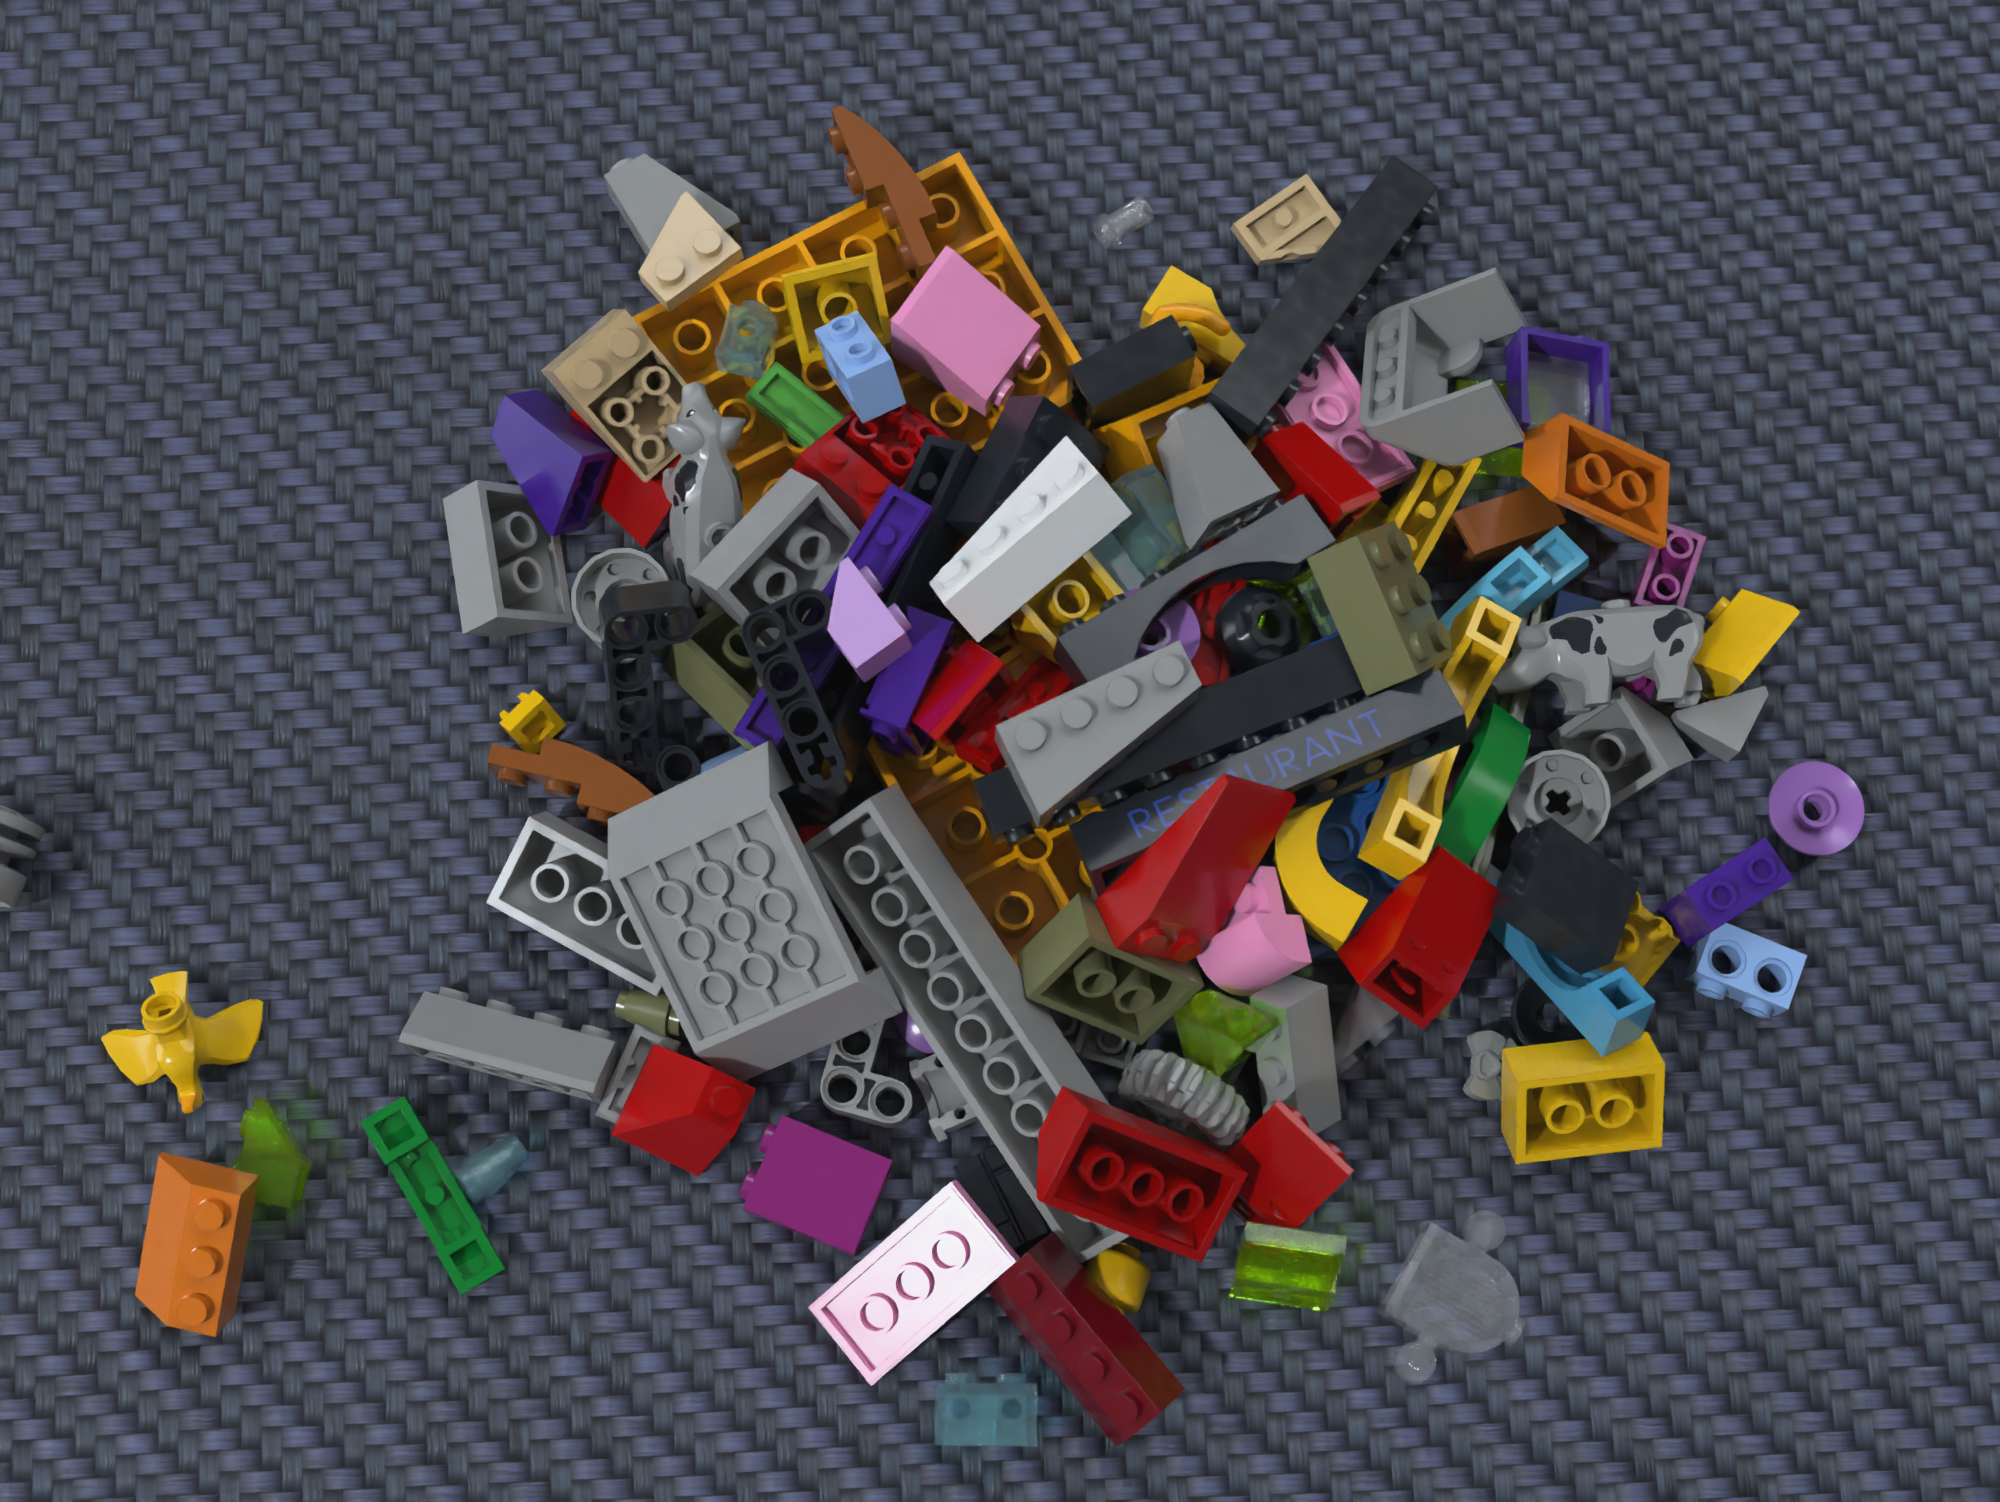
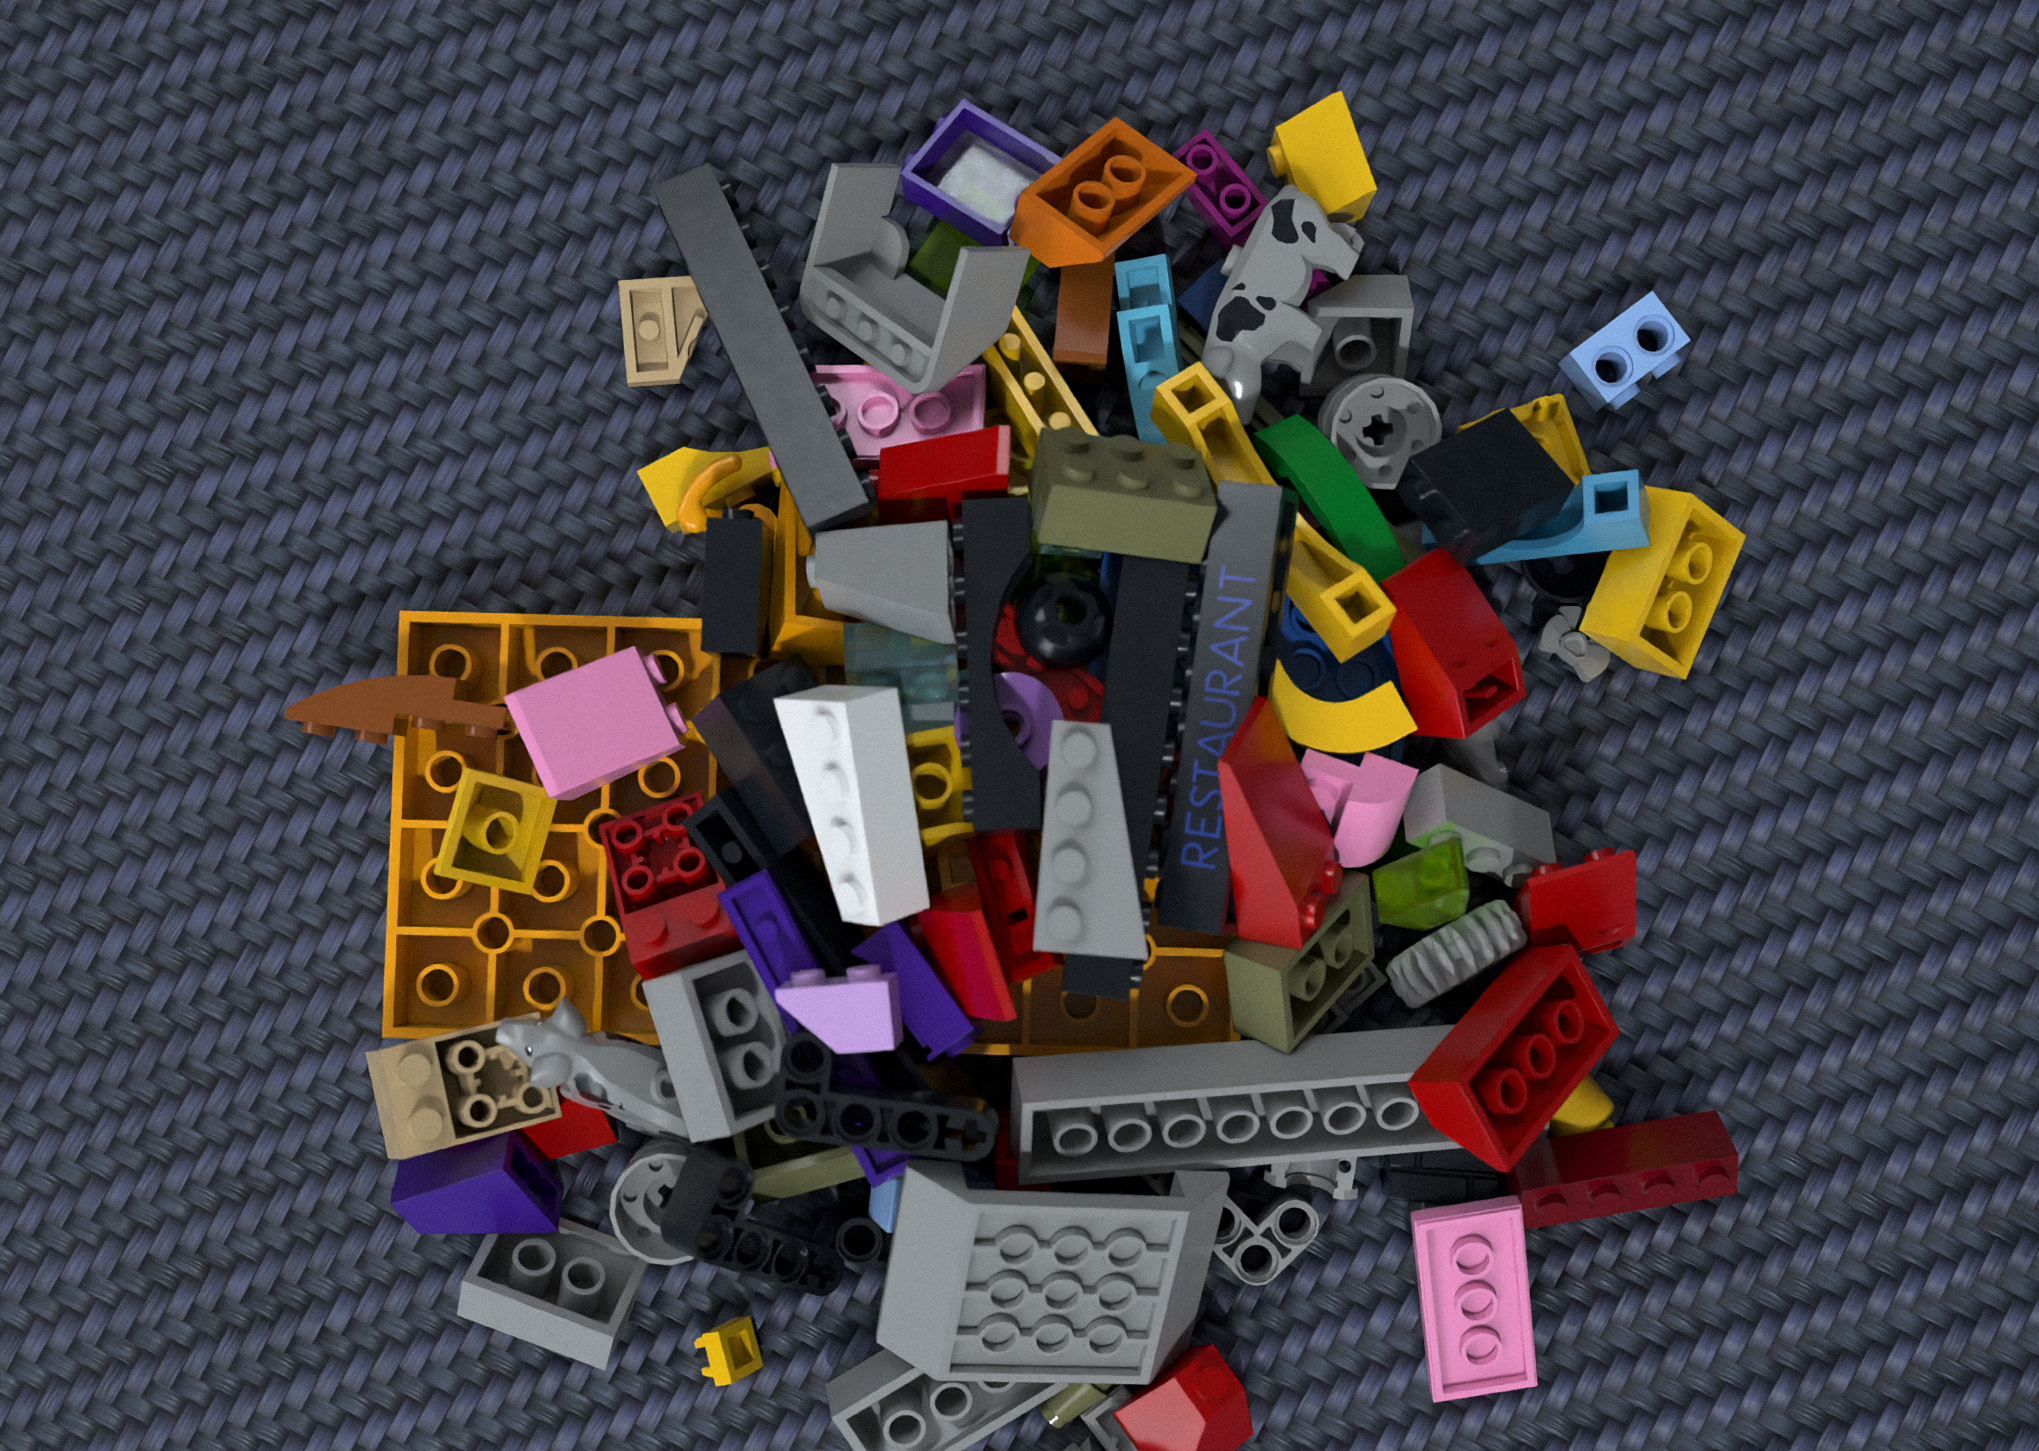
camera: 50 degrees left, 10 degrees up
(568, 769) = (835, 1319): dark orange slope -> none
(648, 193) = (292, 929): light grey slope -> none
(687, 254) = (349, 941): tan wing -> none
(750, 354) = (494, 937): clear light blue brick -> none
(792, 406) = (570, 928): bright green tile -> none
(815, 1184) = (1328, 1333): magenta brick -> none
(860, 366) = (572, 848): light blue brick -> none
(985, 1412) = (1623, 1298): clear light blue brick -> none
(1122, 222) = (560, 488): clear pin -> none
(1287, 1266) = (1656, 946): clear neon green slope -> none
(1453, 1296) = (1763, 808): clear piece -> none
(1722, 723) = (1388, 224): light grey slope -> none
(1725, 893) = (1556, 331): dark purple window -> none
(1834, 797) = (1531, 173): medium lavender dish -> none

